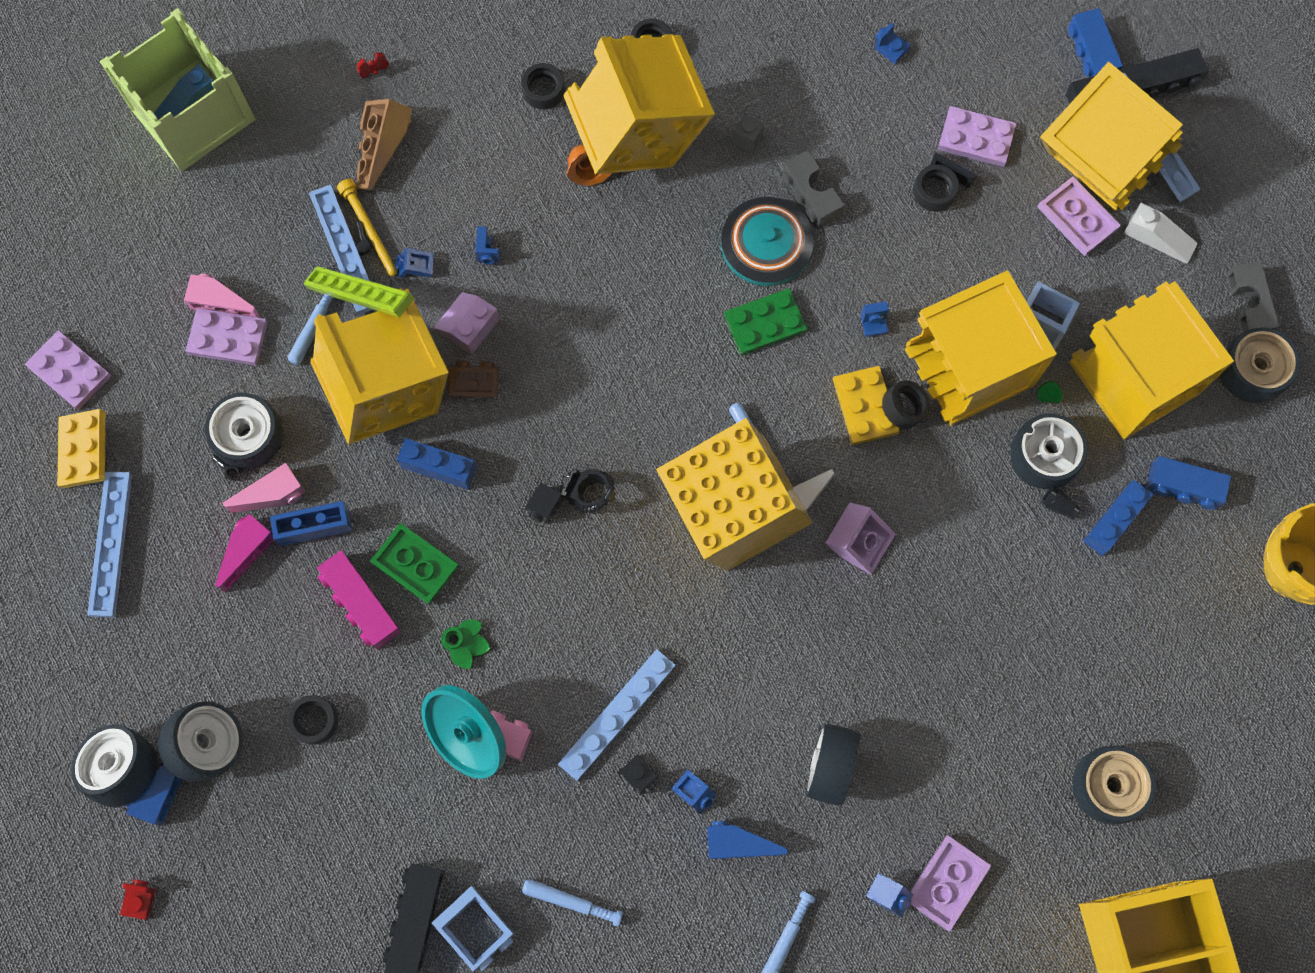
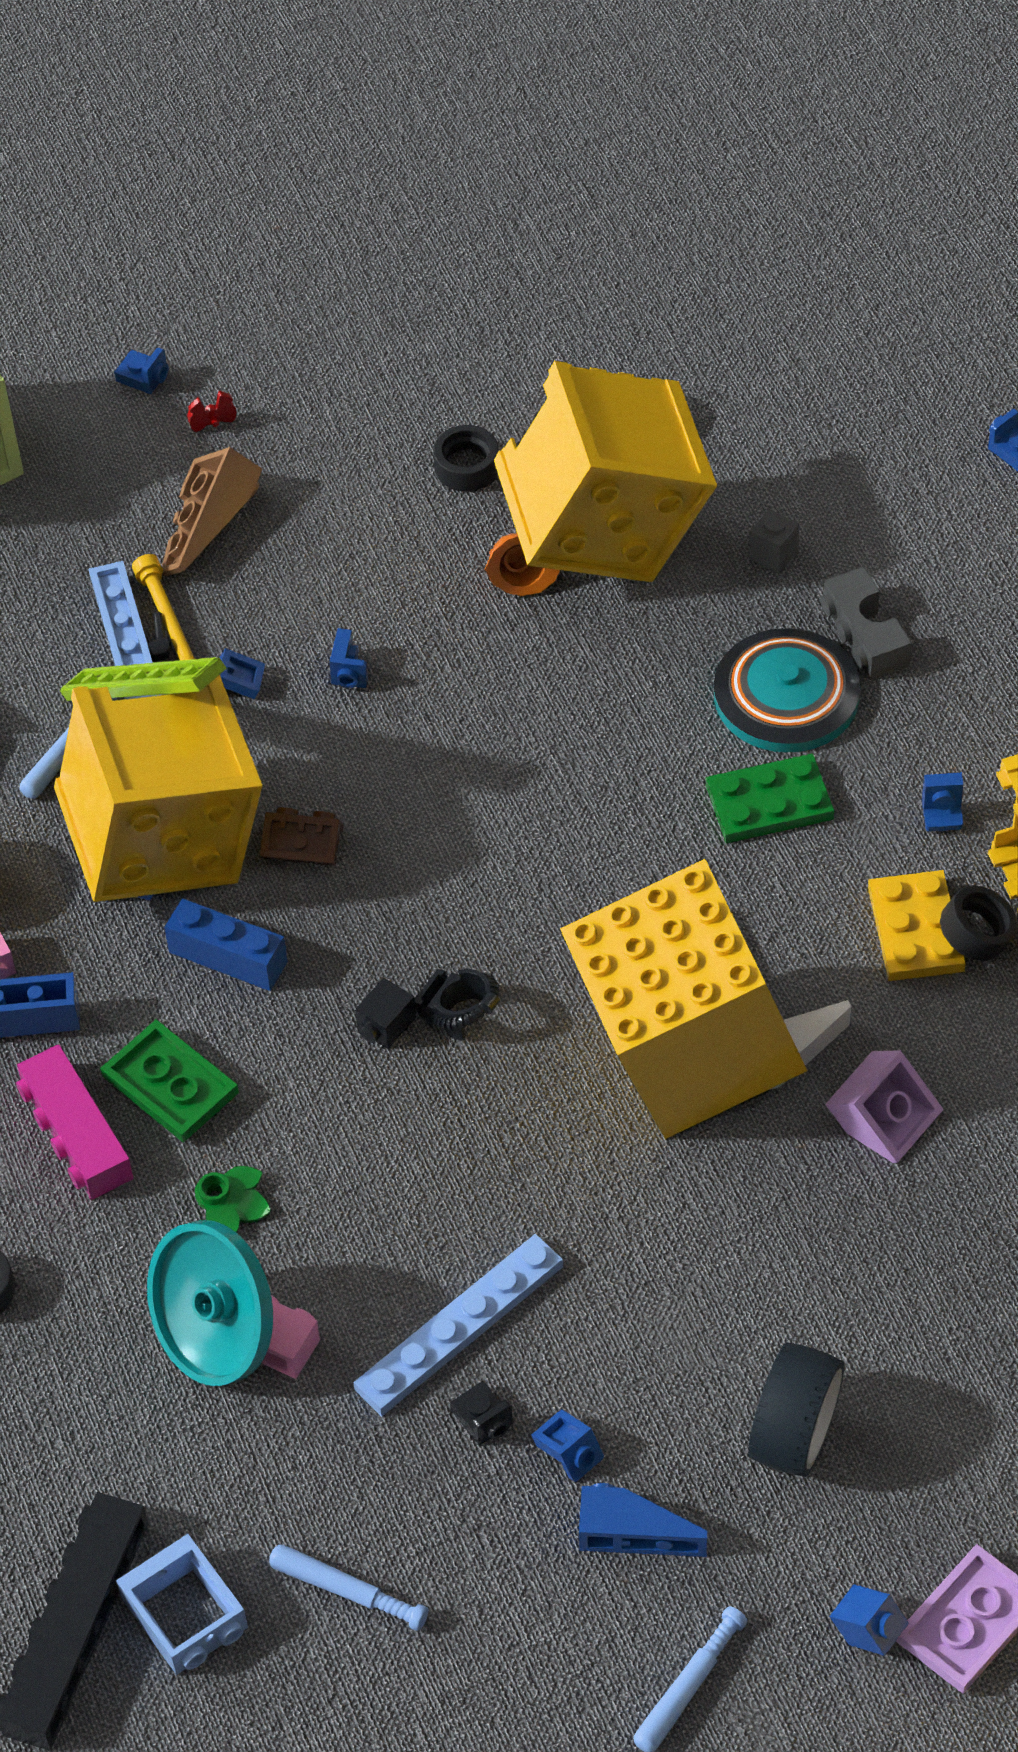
camera: 10 degrees right, 20 degrees down
(322, 35) = (143, 371): none -> blue bracket
(468, 322) = (306, 760): lavender slope -> none

